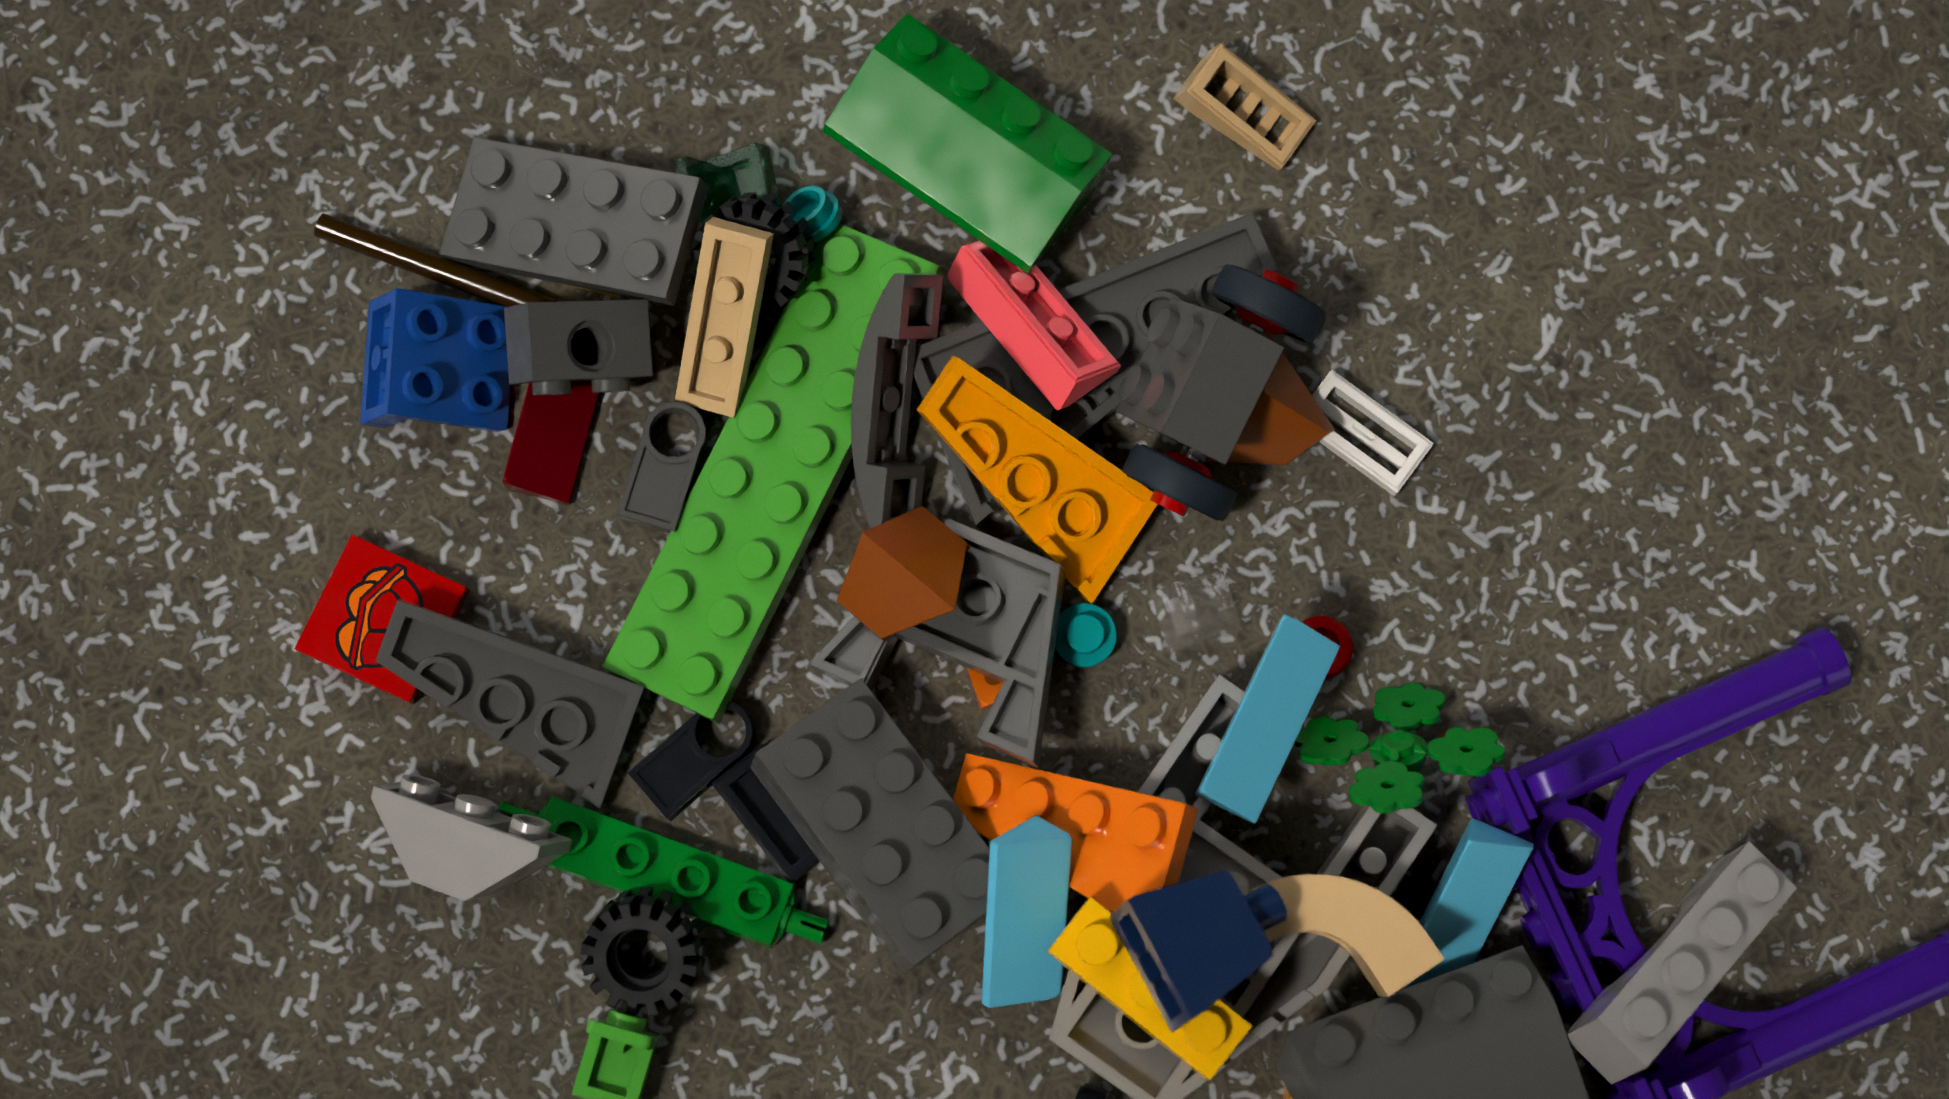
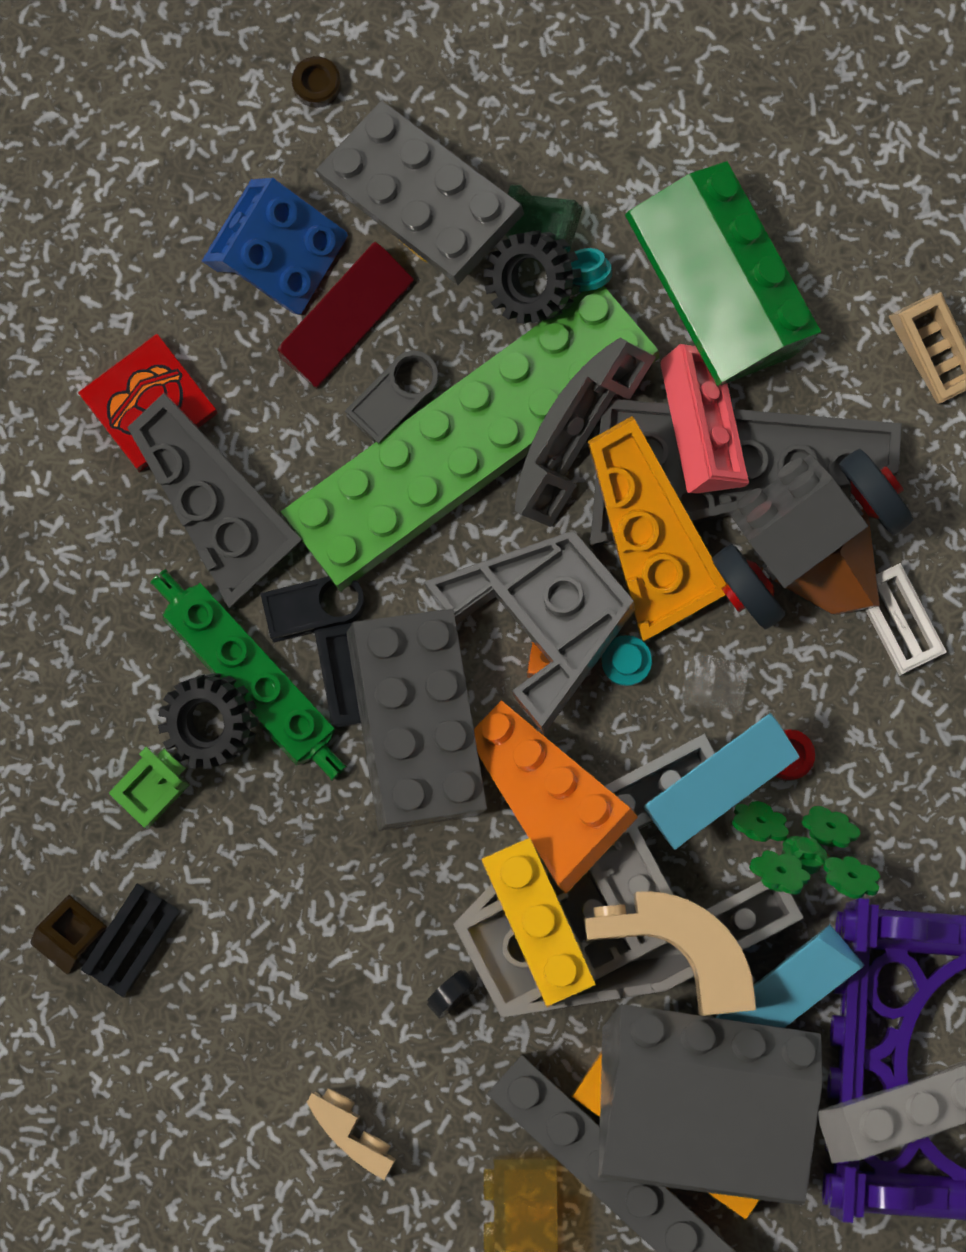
camera: 35 degrees right, 0 degrees up
(387, 152) = (316, 82): none -> dark brown tile
(424, 263) = (307, 176): dark brown bar -> none
(460, 840) = (122, 580): light grey slope -> none
(542, 336) = (406, 280): dark grey brick -> none
(723, 316) = (488, 309): tan plate -> none
(904, 573) = (521, 550): dark orange slope -> none
(1025, 913) = (480, 827): medium azure slope -> none
(1197, 940) = (587, 904): dark blue torso -> none

